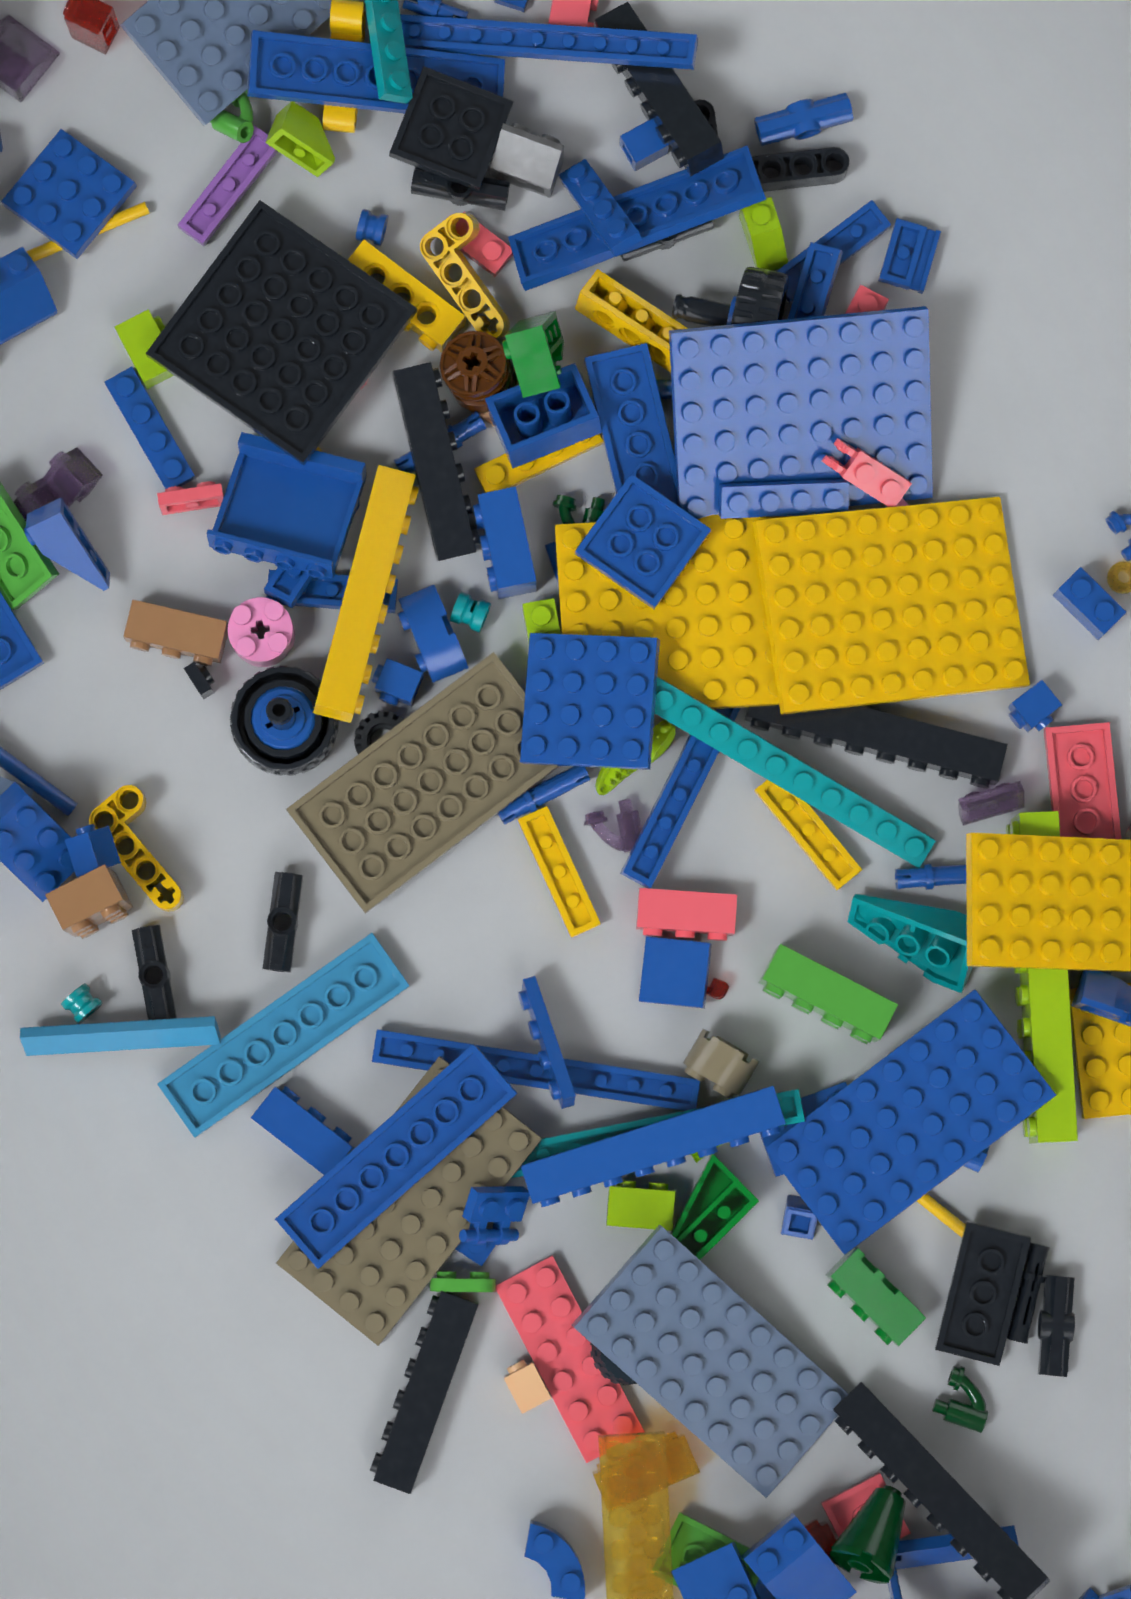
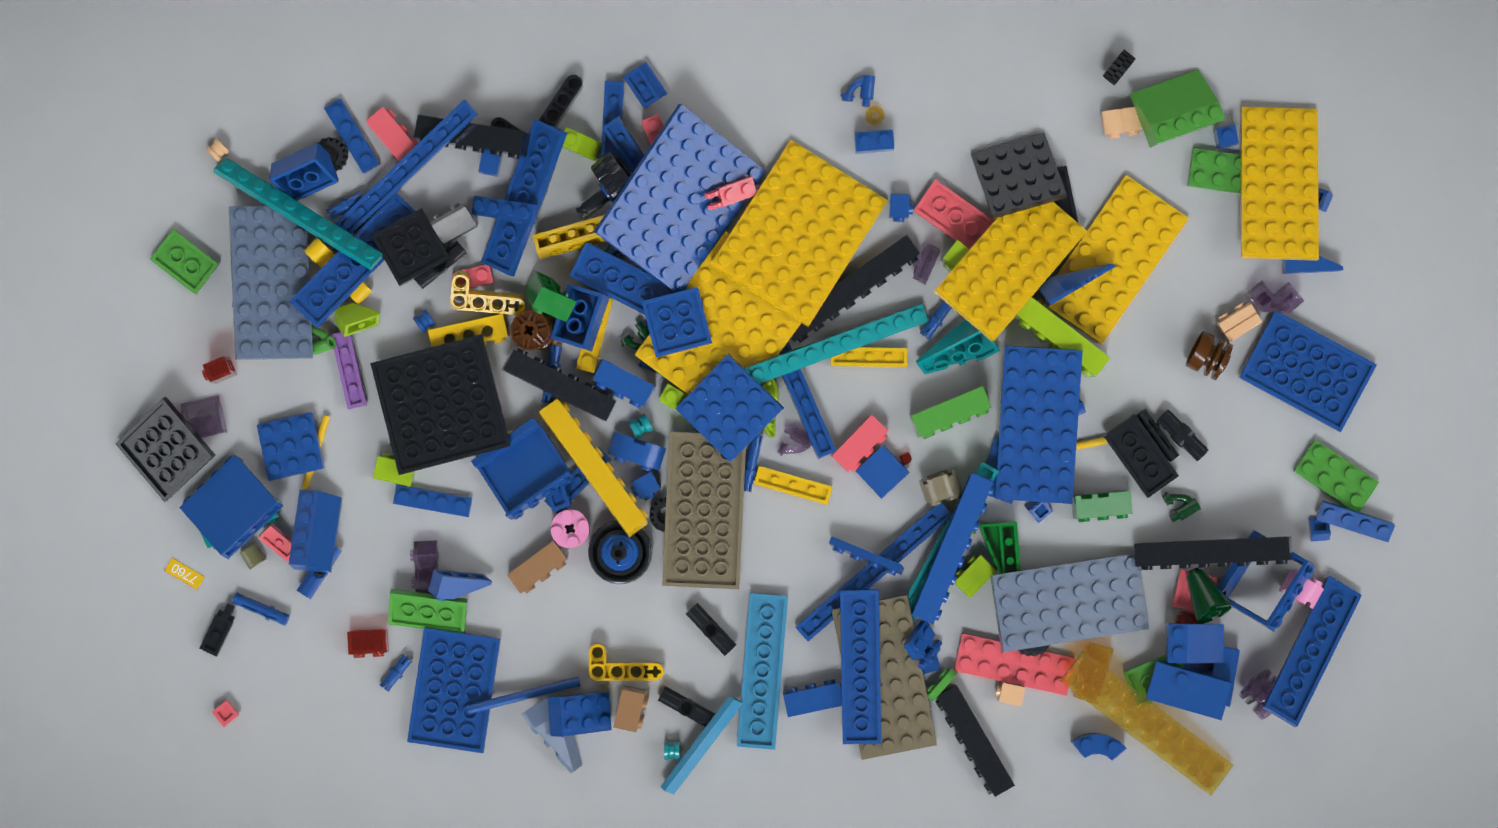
camera: 45 degrees left, 5 degrees up
(92, 849) = (608, 688): blue brick -> none
(179, 500) = (476, 515): coral plate -> none
(201, 679) = (568, 573): black plate -> none
(783, 498) = (710, 241): plate -> none
(803, 119) = (540, 79): blue piece -> none

